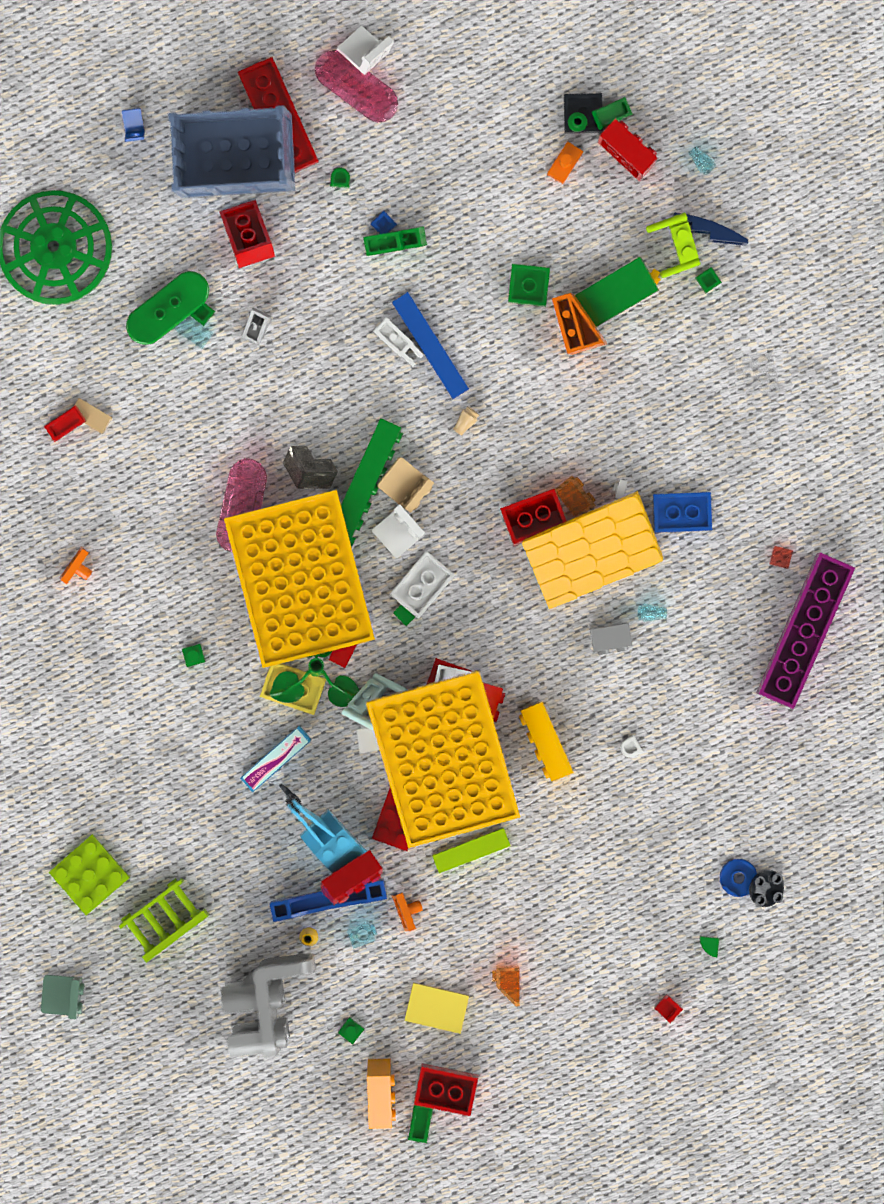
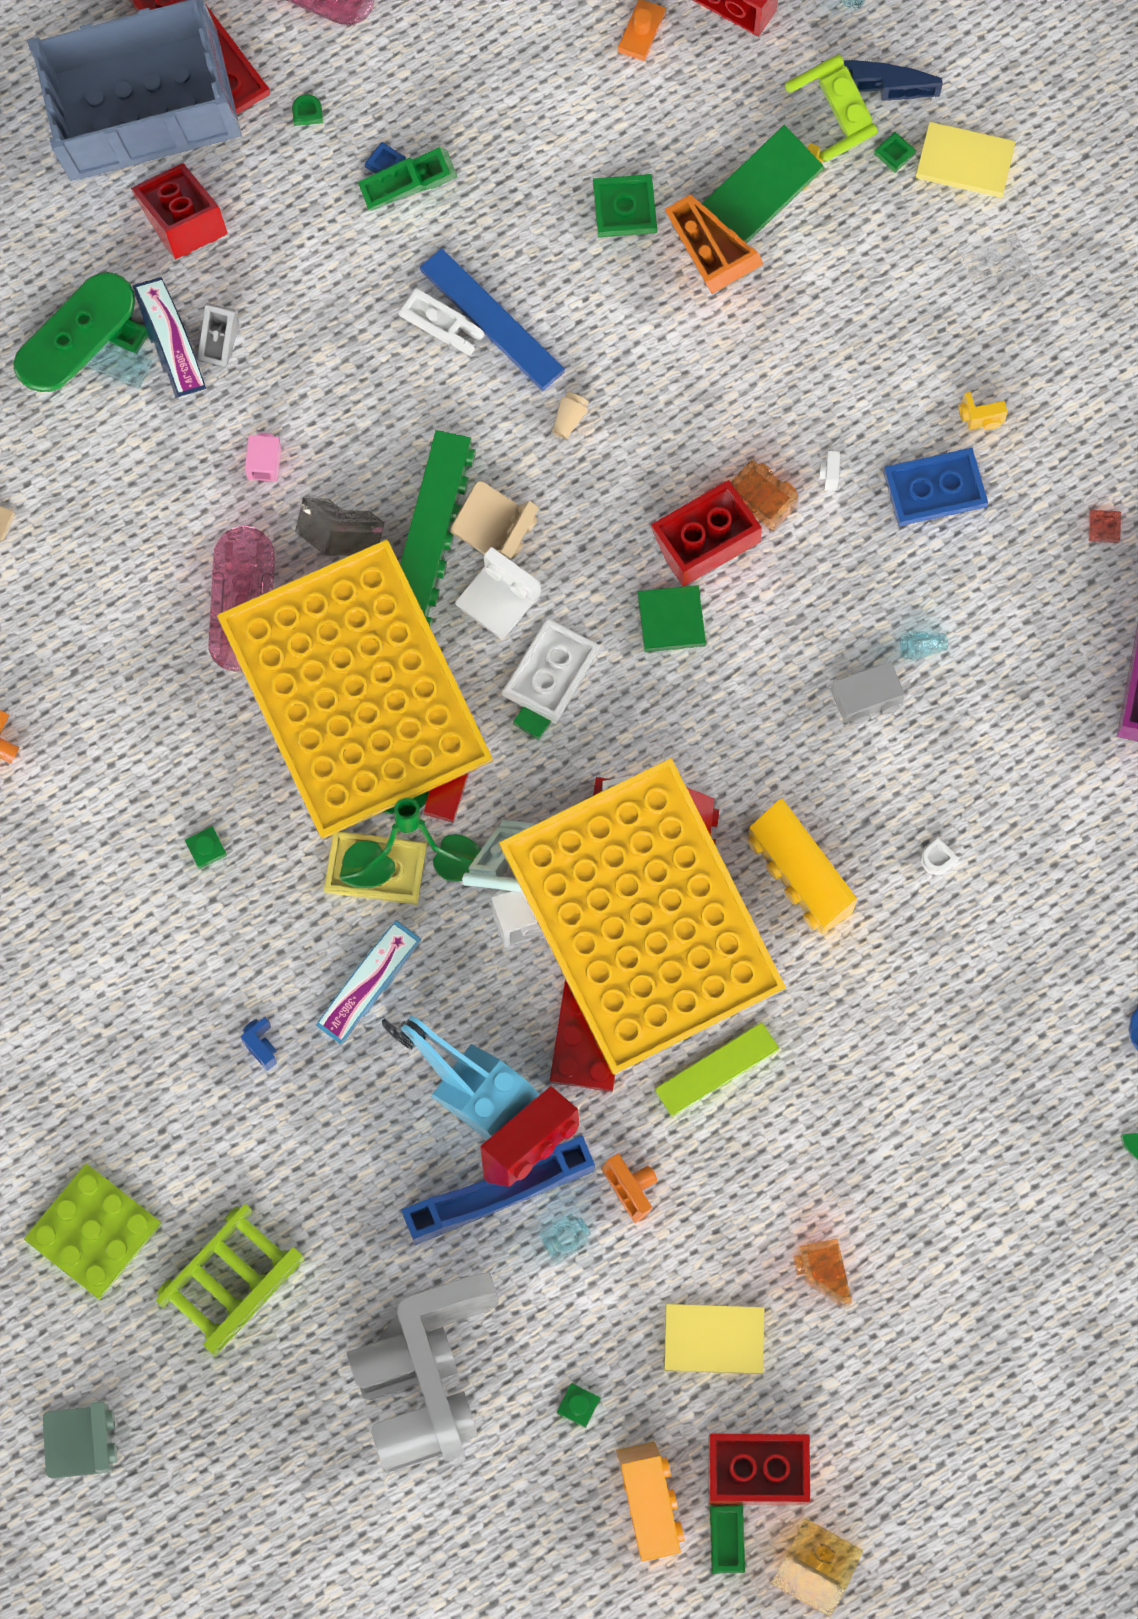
camera: 10 degrees left, 15 degrees down
(205, 786) = (260, 1049): none -> blue bracket
(226, 321) = (169, 337): none -> slope
(271, 412) = (263, 457): none -> bright pink brick
(310, 932) = (476, 1268): yellow cone -> none
(468, 1149) = (817, 1567): none -> clear yellow slope
(502, 565) = (671, 618): none -> green tile
(593, 550) = (809, 564): yellow piece -> none
(668, 1008) = (1098, 1260): red panel -> none
(724, 473) = (986, 416): none -> yellow bracket
(752, 294) = (965, 159): none -> light yellow tile

